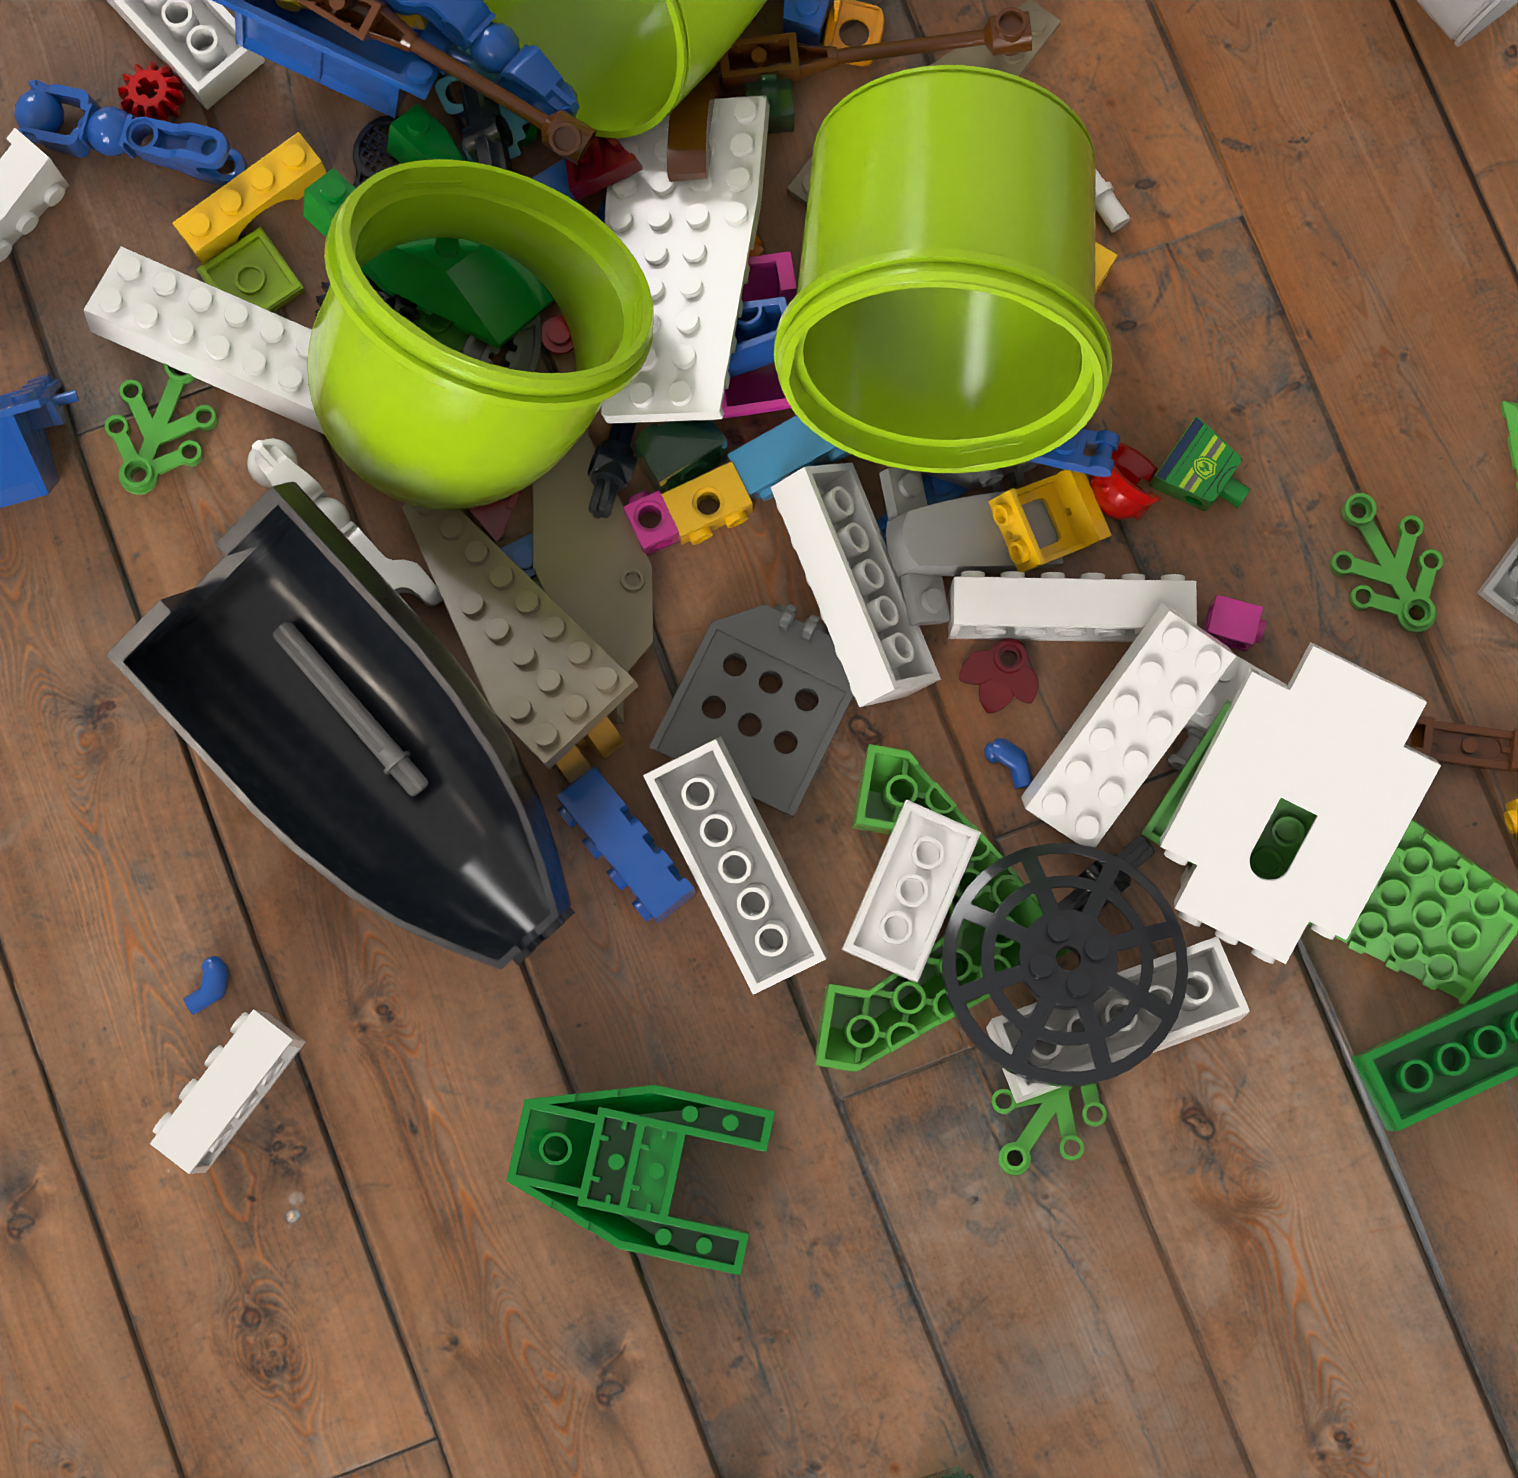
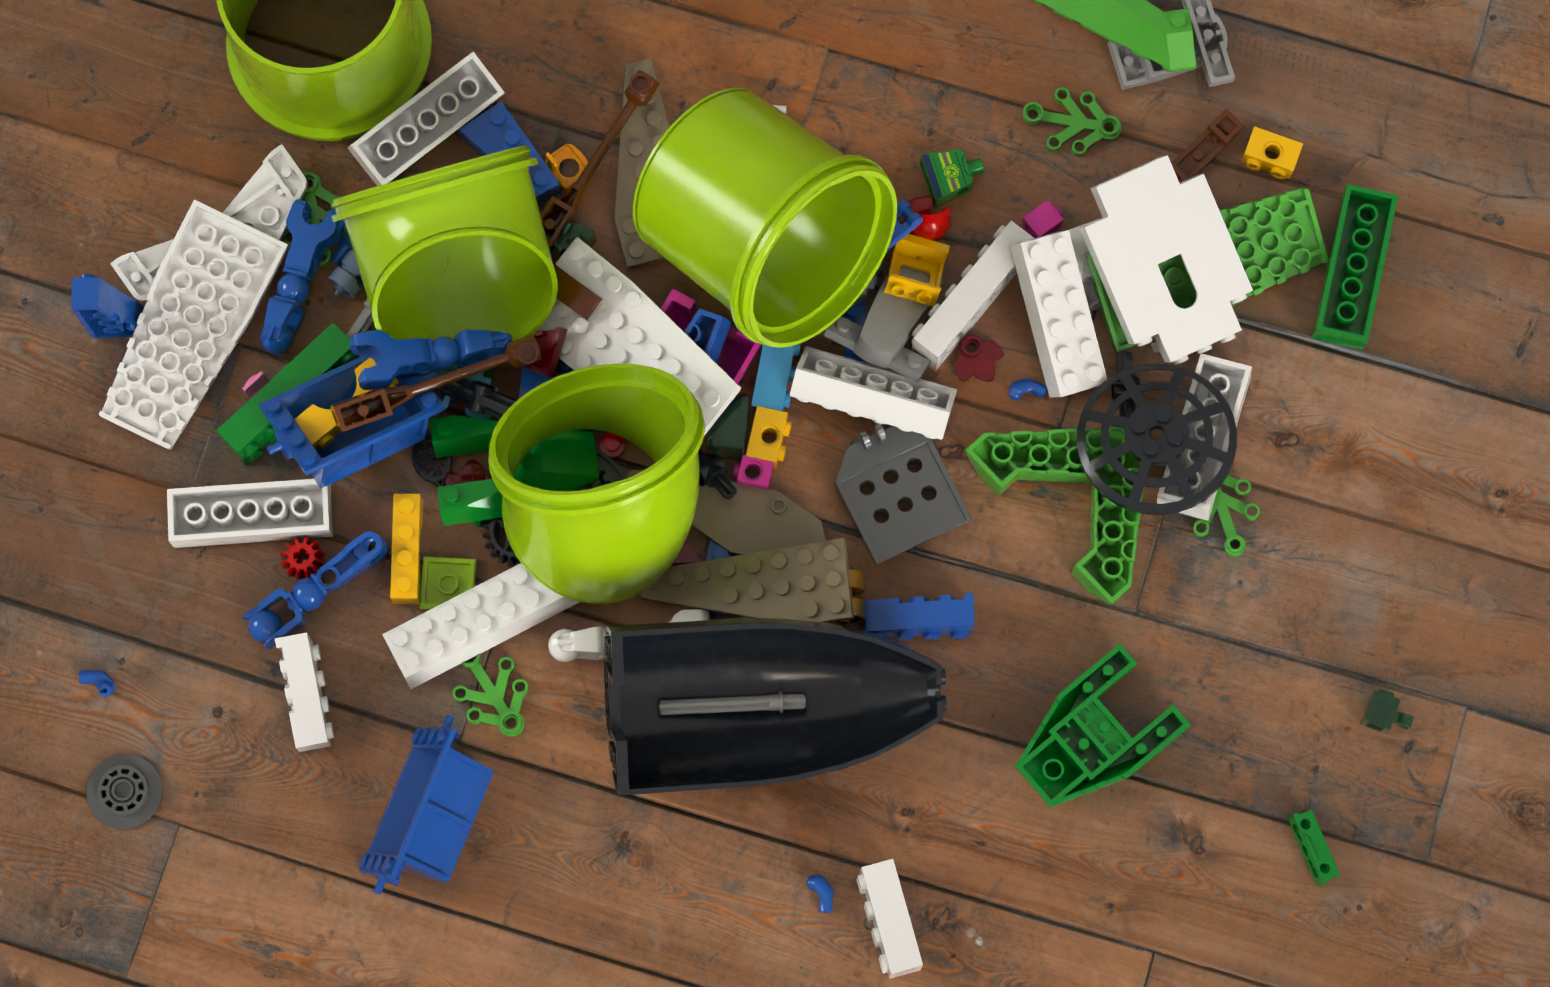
camera: 50 degrees left, 5 degrees down
(737, 865) = (975, 565): white brick -> none
(911, 891) = (1059, 487): white tile -> none

